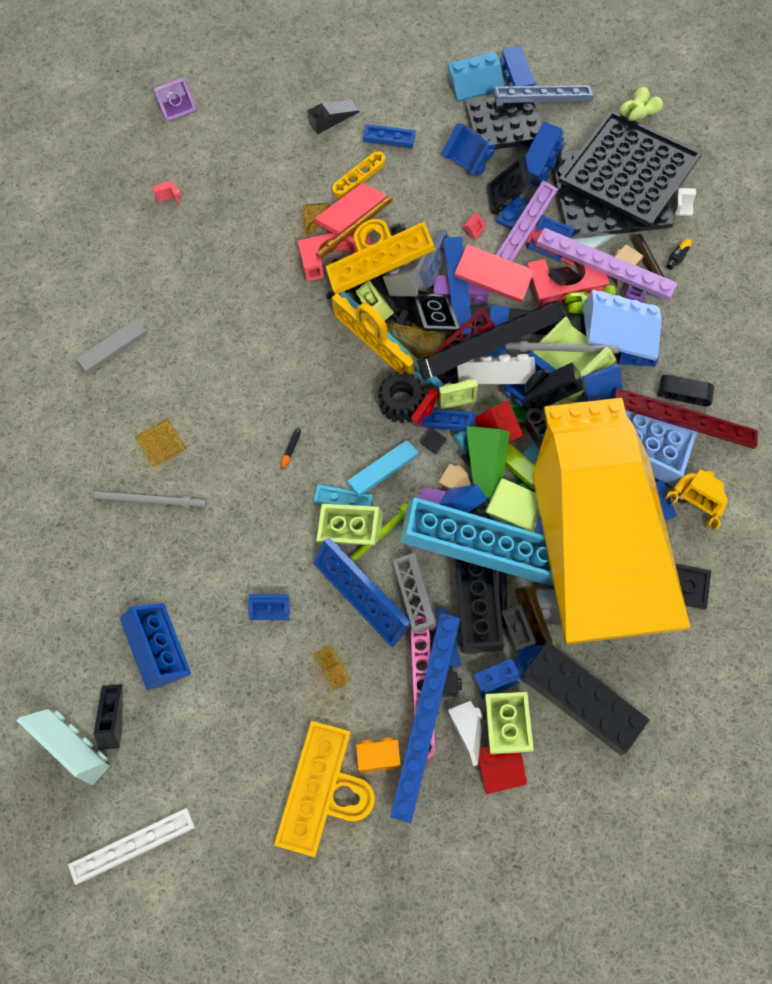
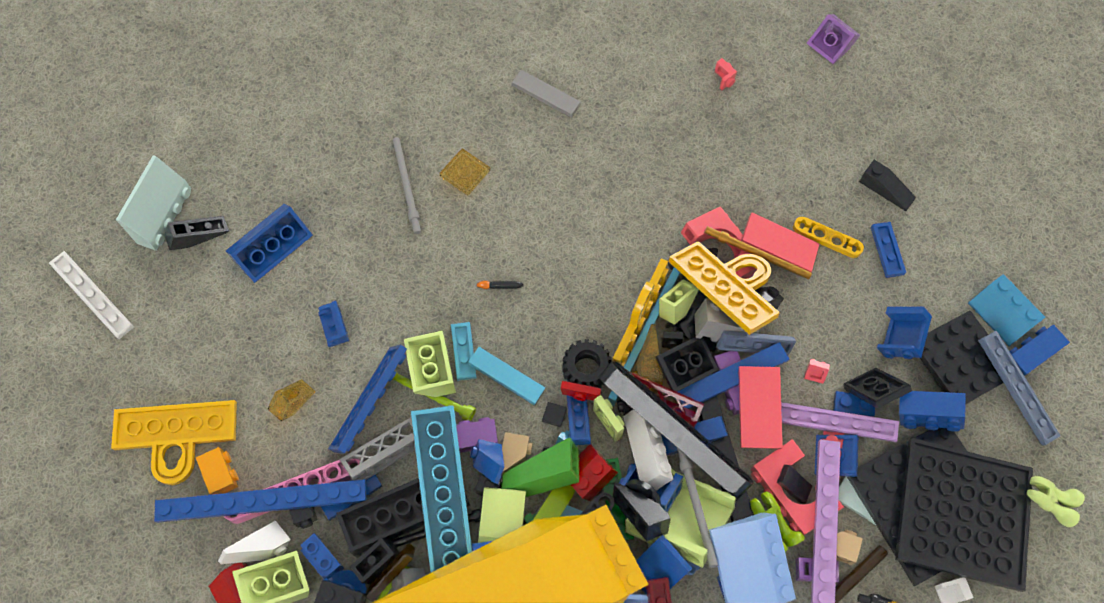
camera: 65 degrees right, 0 degrees up
(311, 211) = (758, 206): clear yellow slope -> none

